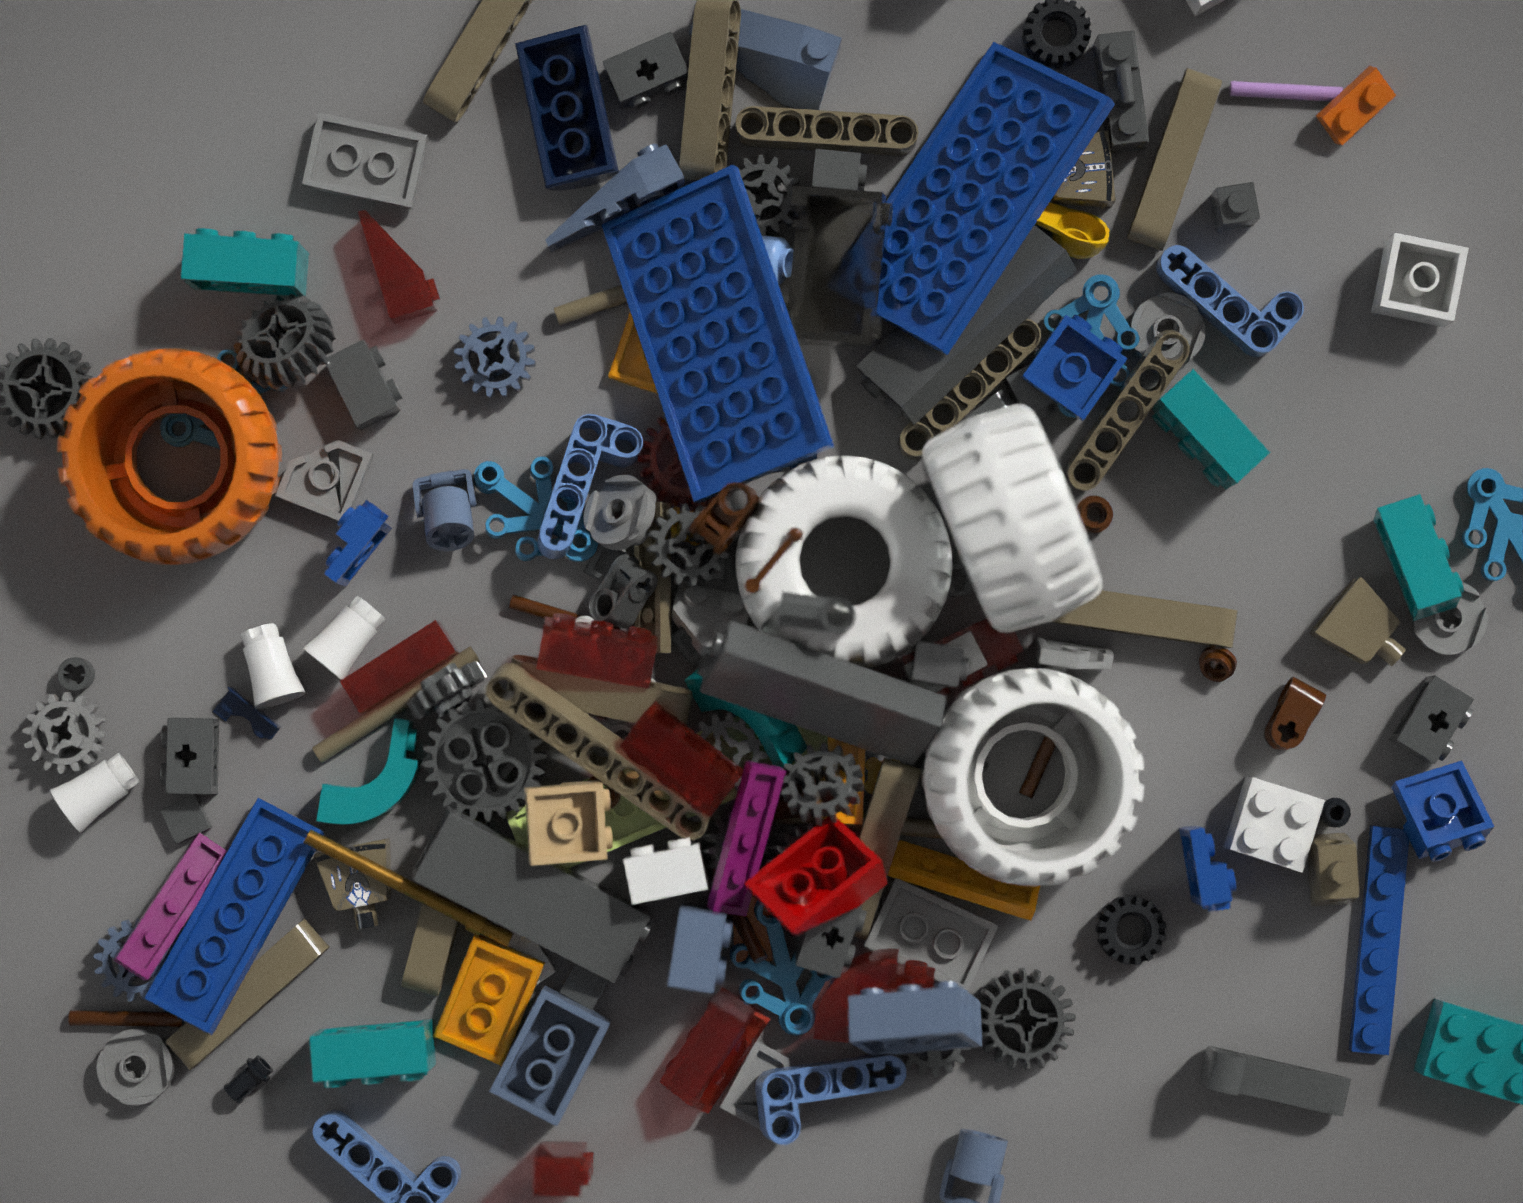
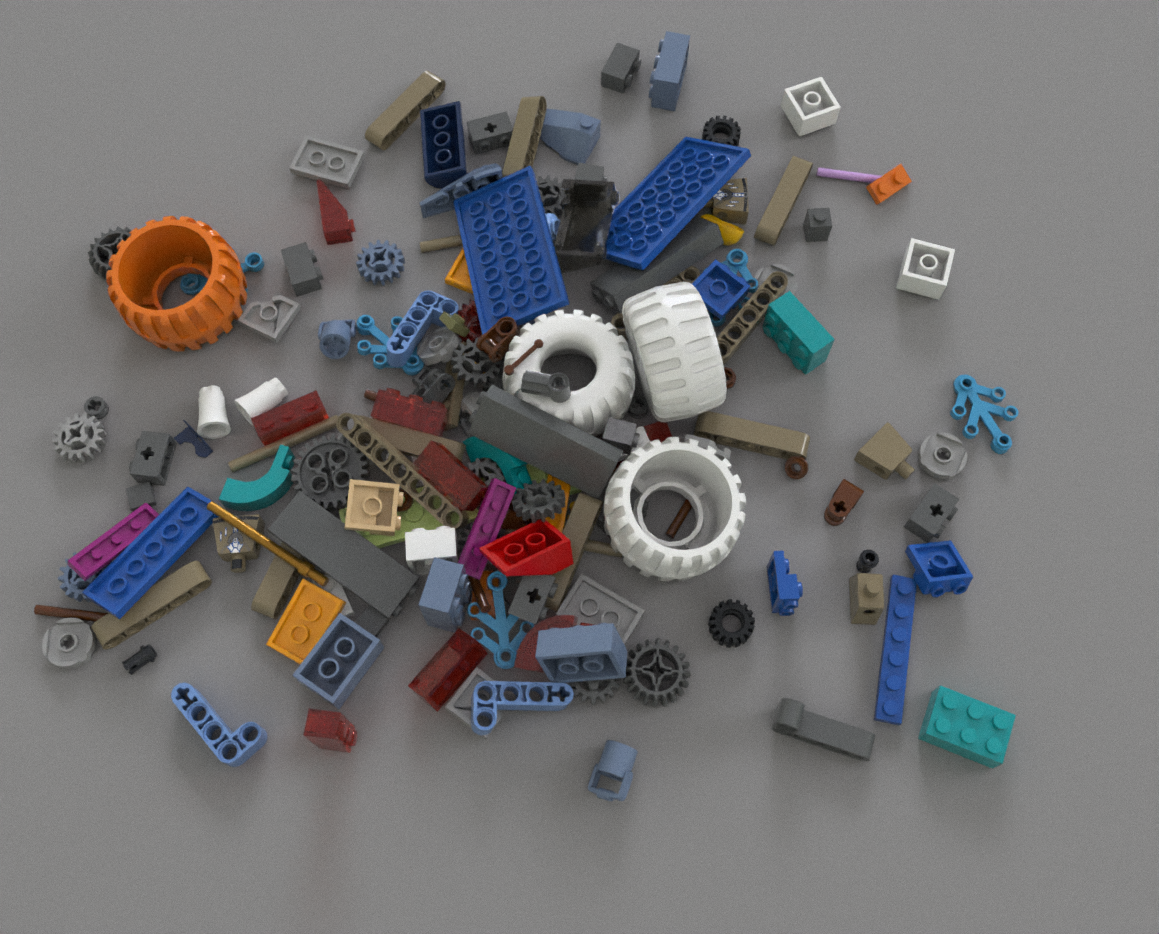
camera: 10 degrees right, 20 degrees down
(95, 791) = (88, 471): white plant -> none
(244, 263) = (247, 199): teal brick -> none
(284, 342) = (260, 239): dark grey gear -> none
(363, 531) = (280, 347): blue plate -> none
(372, 1052) = (222, 644): teal brick -> none
(446, 689) = (312, 428): dark grey gear -> none
(643, 479) = (454, 323): none -> olive plate
(844, 123) = (565, 164): dark tan beam -> none
(959, 880) = (624, 580): light orange plate -> none
(1121, 81) = (756, 167): dark grey piece -> none
(1223, 295) = (788, 254): medium blue beam -> none
(1274, 824) = (828, 565): white brick -> none
(1418, 557) = (923, 415): teal brick -> none

